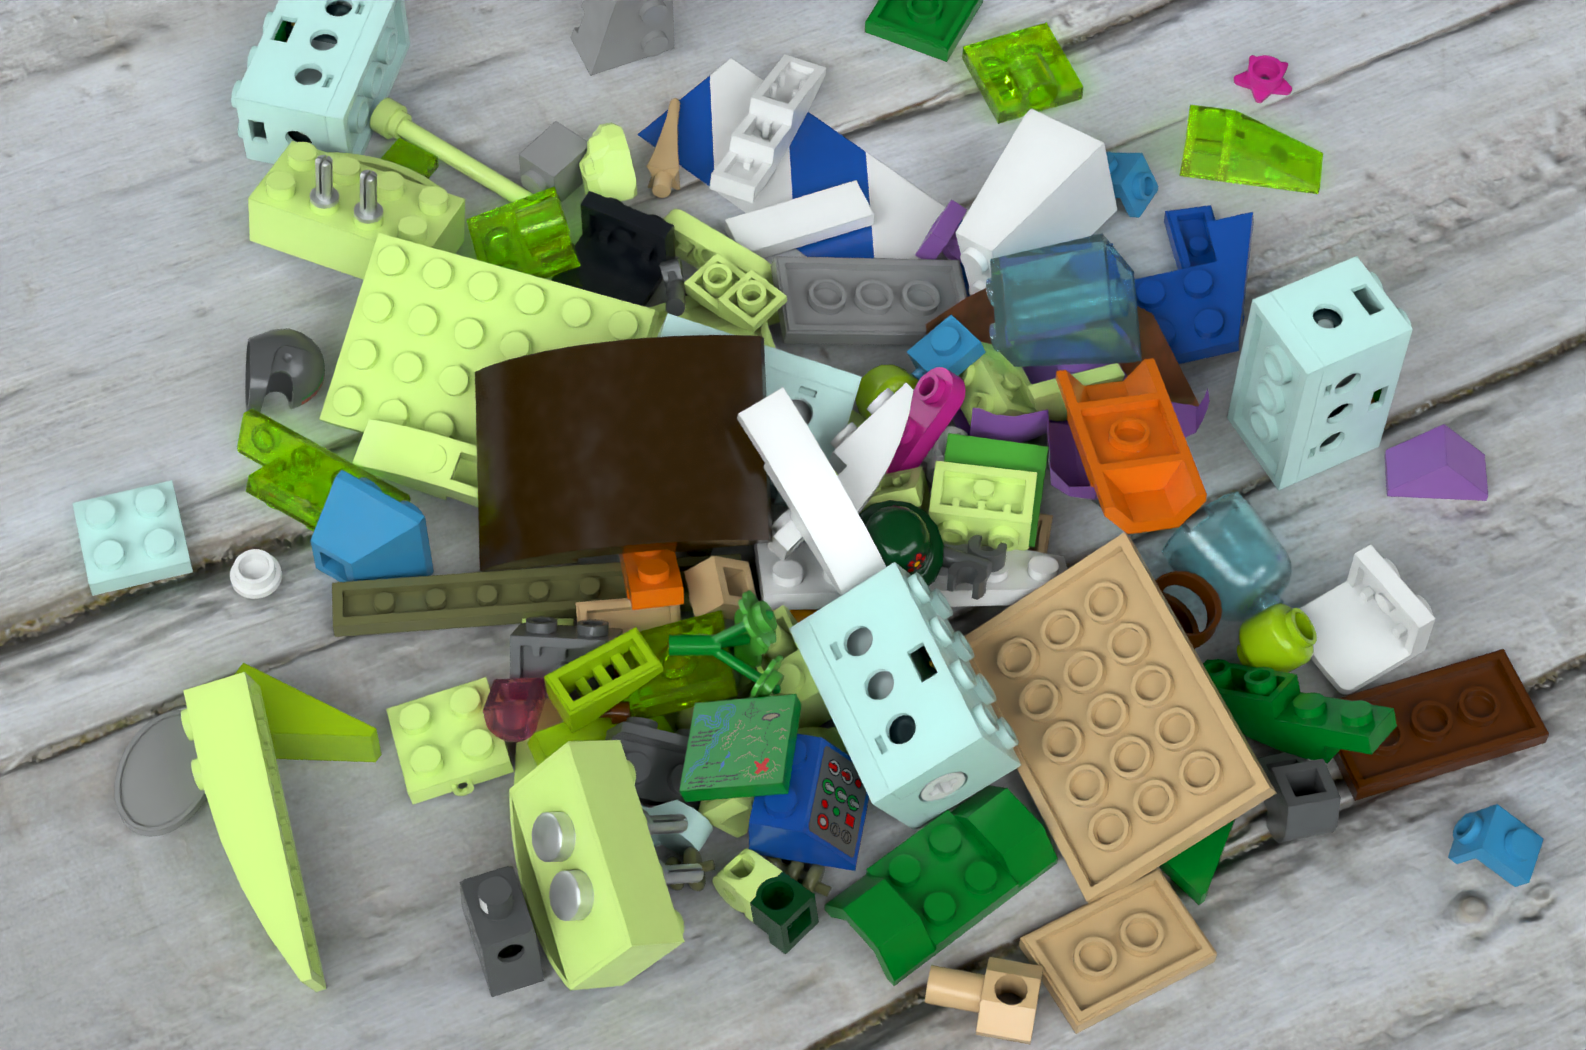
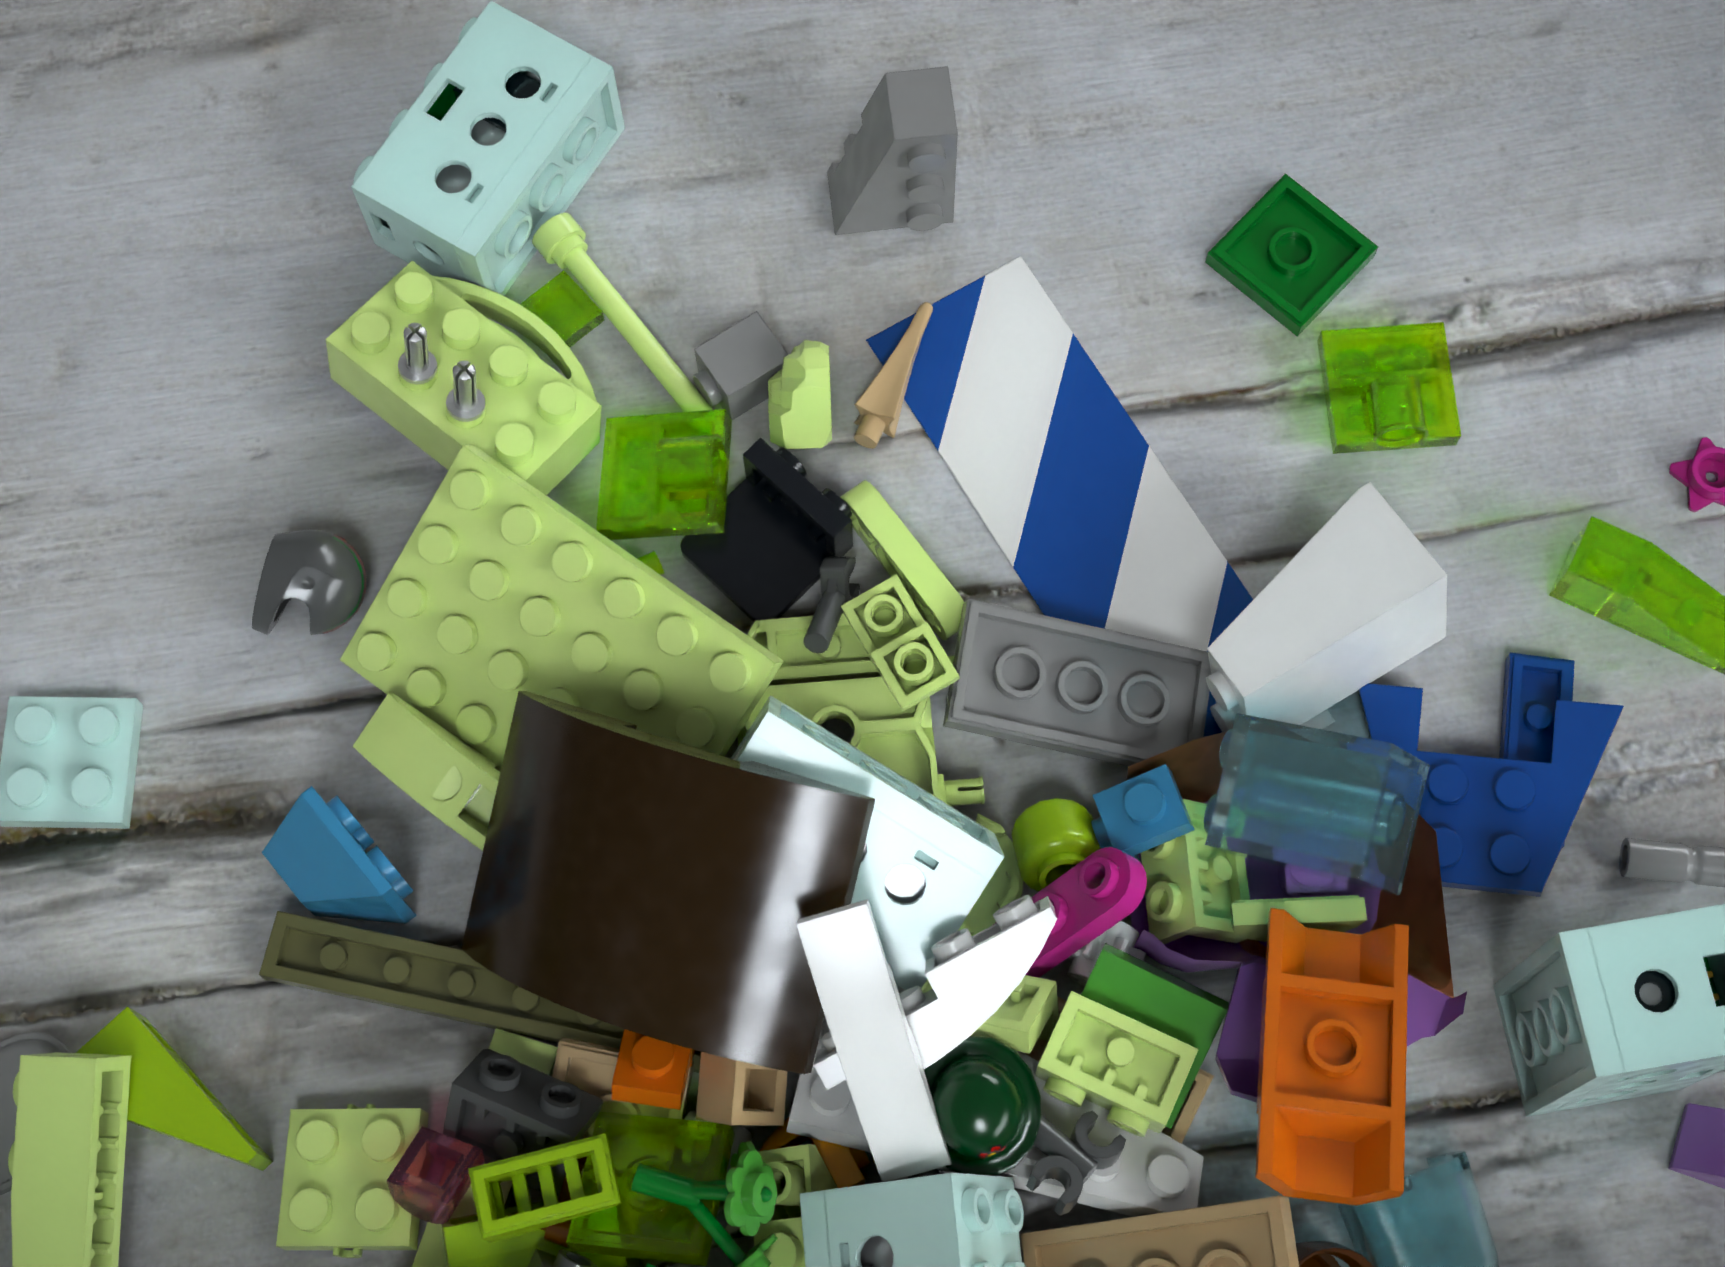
camera: 20 degrees right, 15 degrees up
(255, 574) = (196, 863): white plate -> none
(295, 469) = (293, 748): clear neon green bracket -> none
(768, 128) = (1030, 383): white slope -> none
(802, 220) = (1028, 534): white tile -> none
(943, 234) = (1204, 611): medium lavender tile -> none
(1132, 181) = (1476, 591): dark azure bracket -> none

